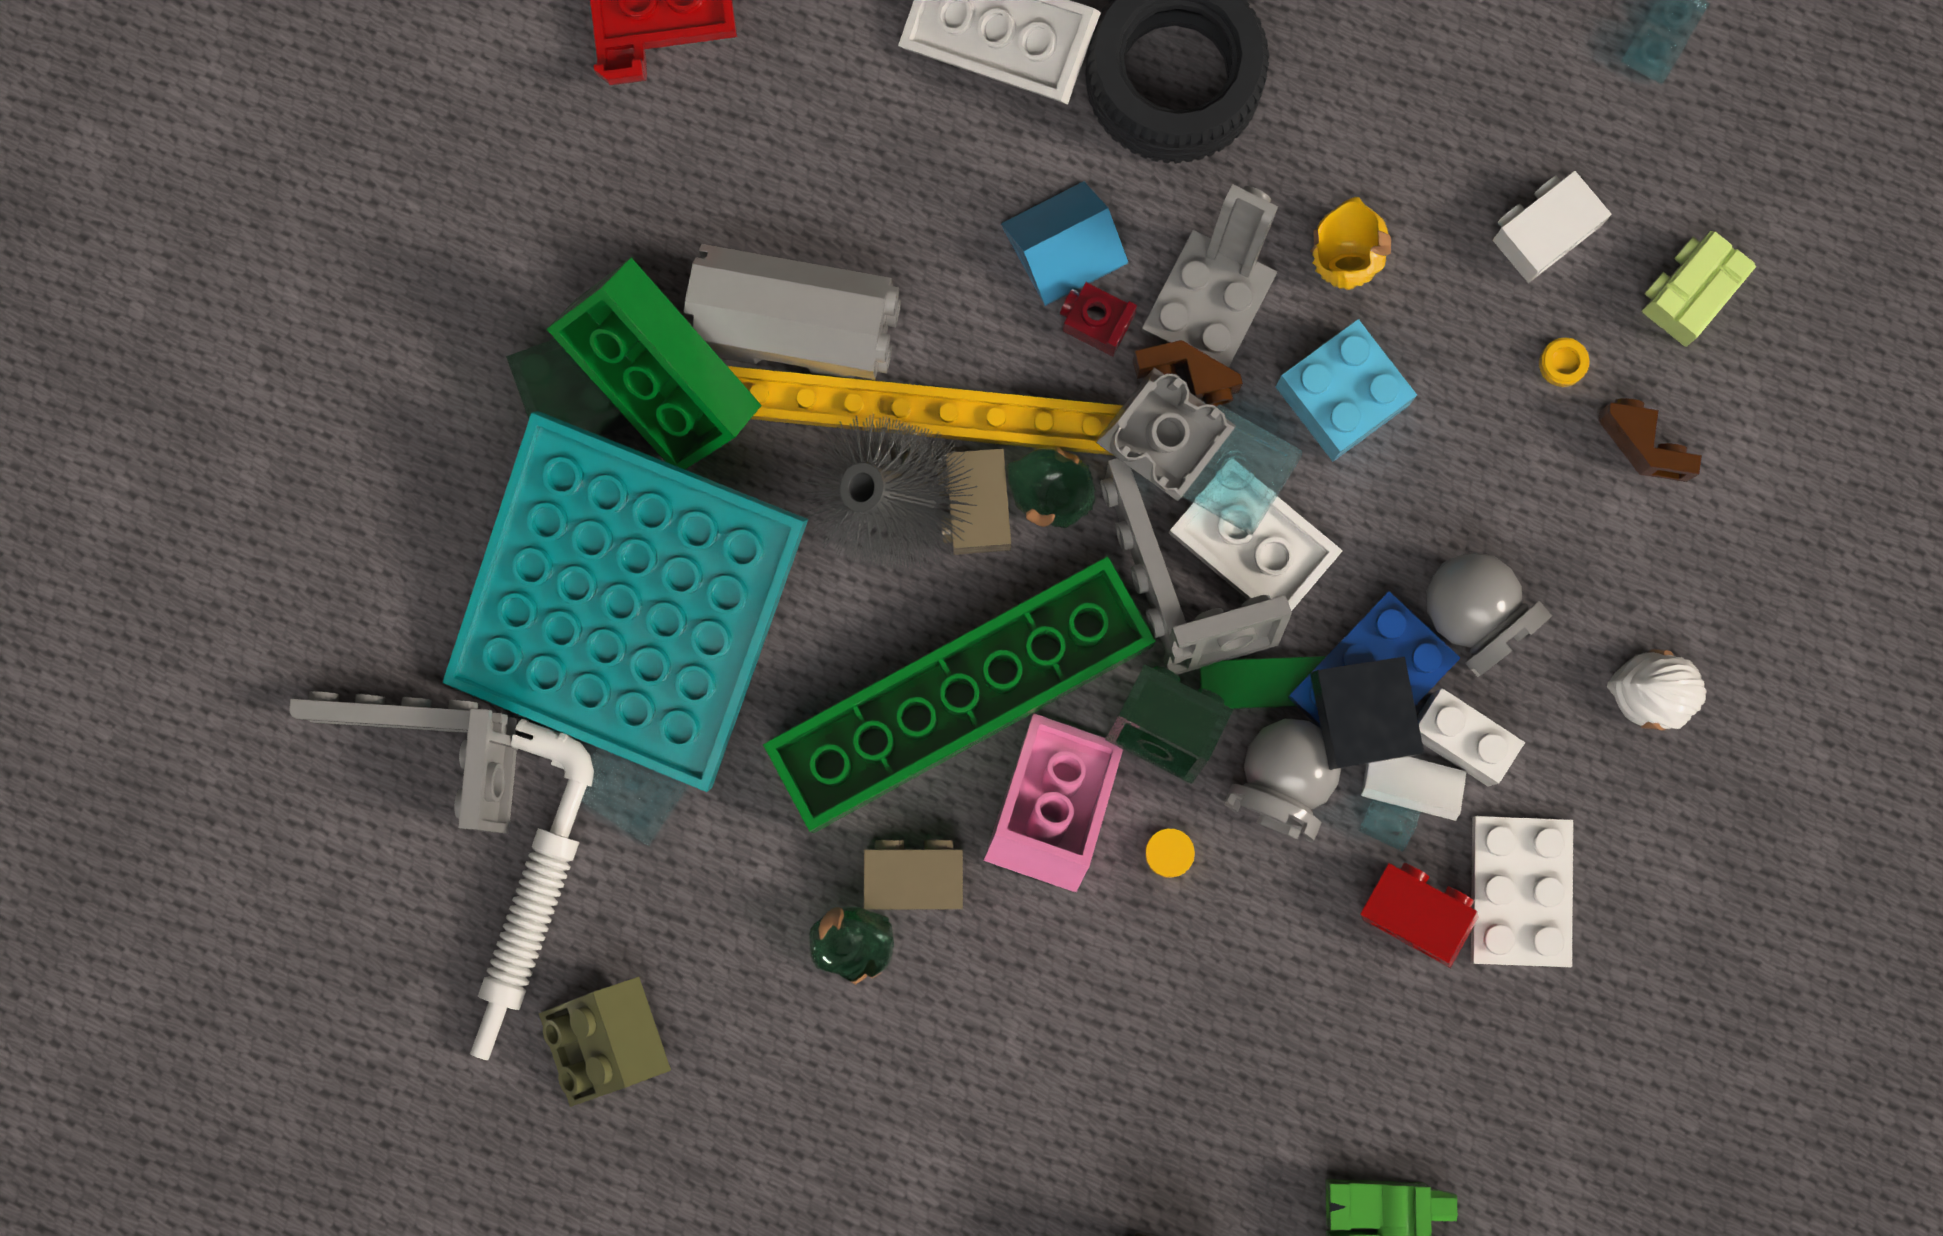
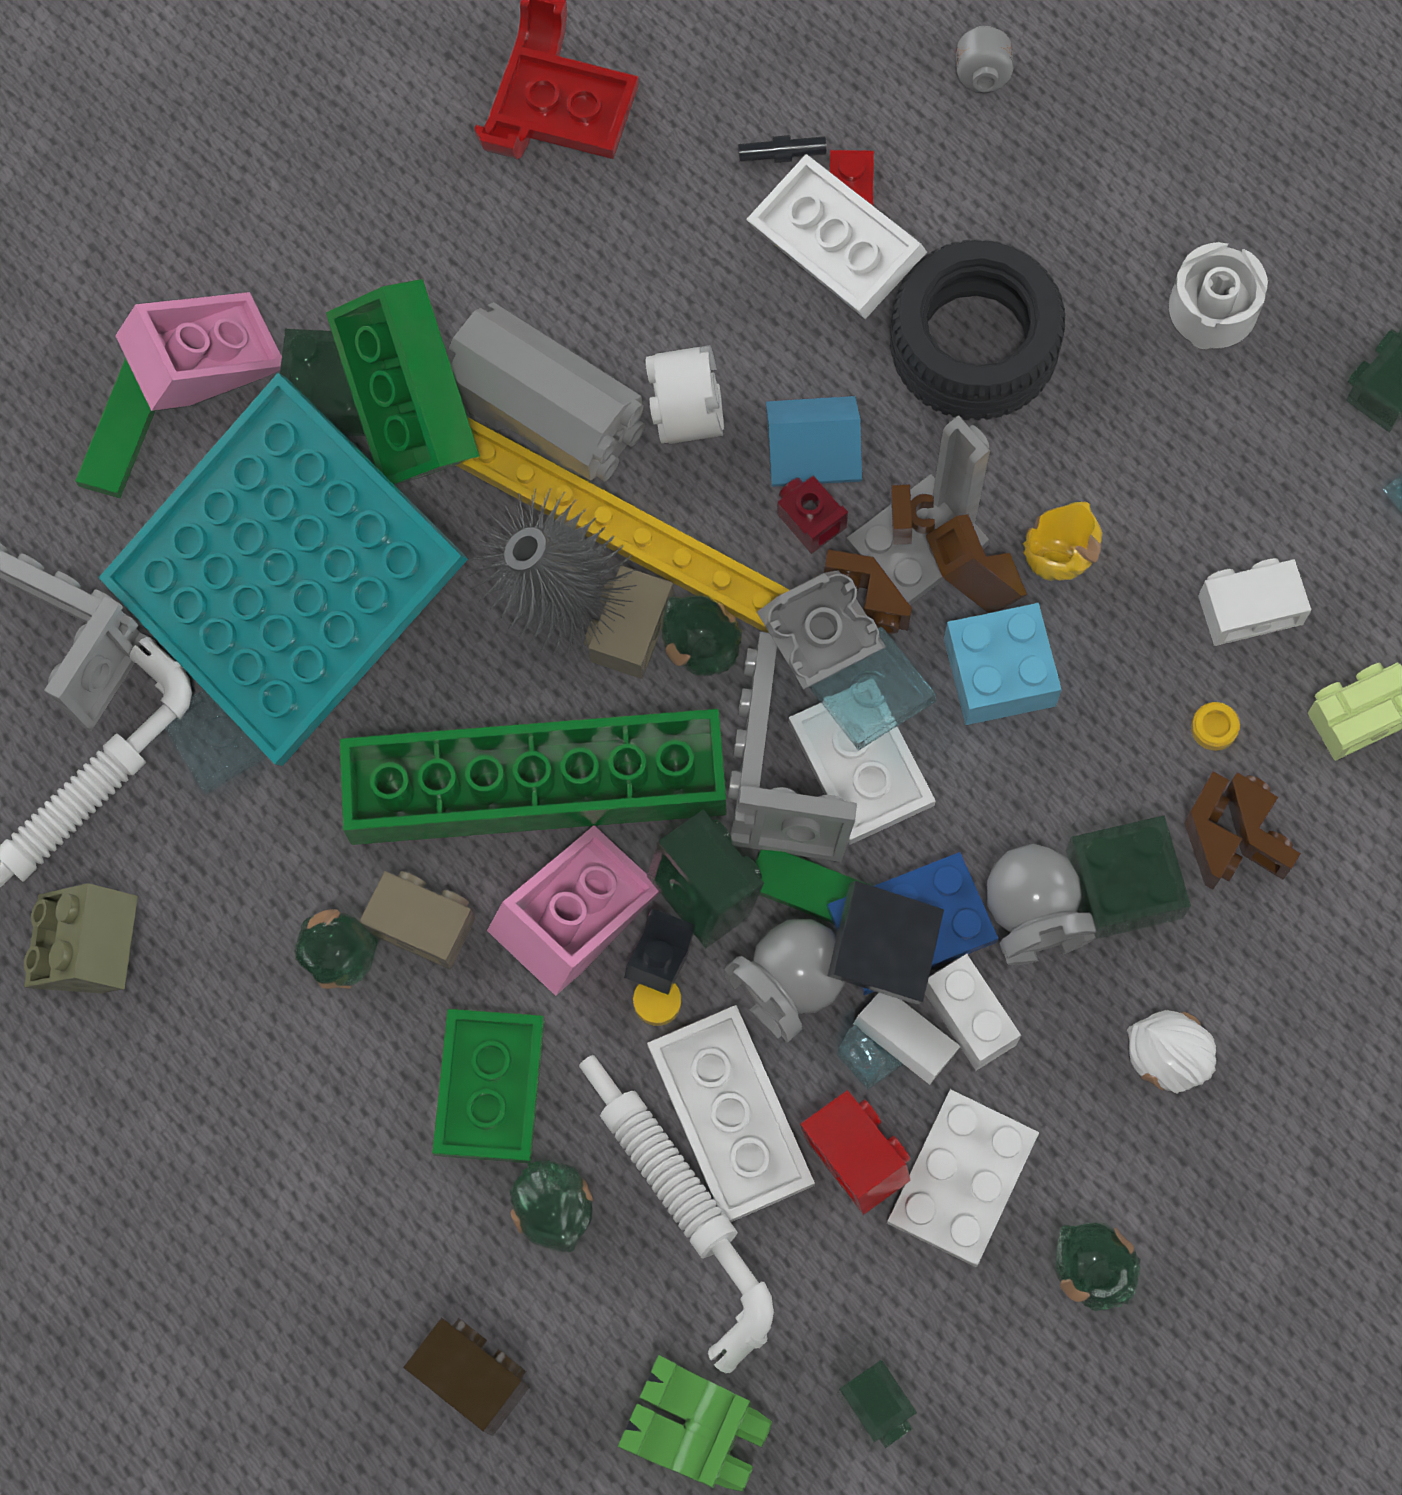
camera: 25 degrees right, 10 degrees down
(386, 500) = (117, 437): none -> green tile
(425, 411) = (197, 348): none -> bright pink slope
(929, 252) = (686, 395): none -> white brick
(1054, 1004) = (488, 1086): none -> green plate
(1154, 809) = (660, 951): none -> black bracket
(1162, 1087) = (551, 1205): none -> clear green hair
(1192, 286) = (905, 516): none -> reddish brown tile
(1276, 312) = (984, 579): none -> reddish brown slope
(1287, 930) = (730, 1114): none -> white plate
(1293, 1032) = (690, 1206): none -> white piece
(1546, 1139) = (877, 1405): none -> clear green brick
(1553, 544) = (1129, 876): none -> clear green brick
(1614, 482) = (1211, 843): none -> reddish brown slope
(1681, 921) = (1096, 1265): none -> clear green hair

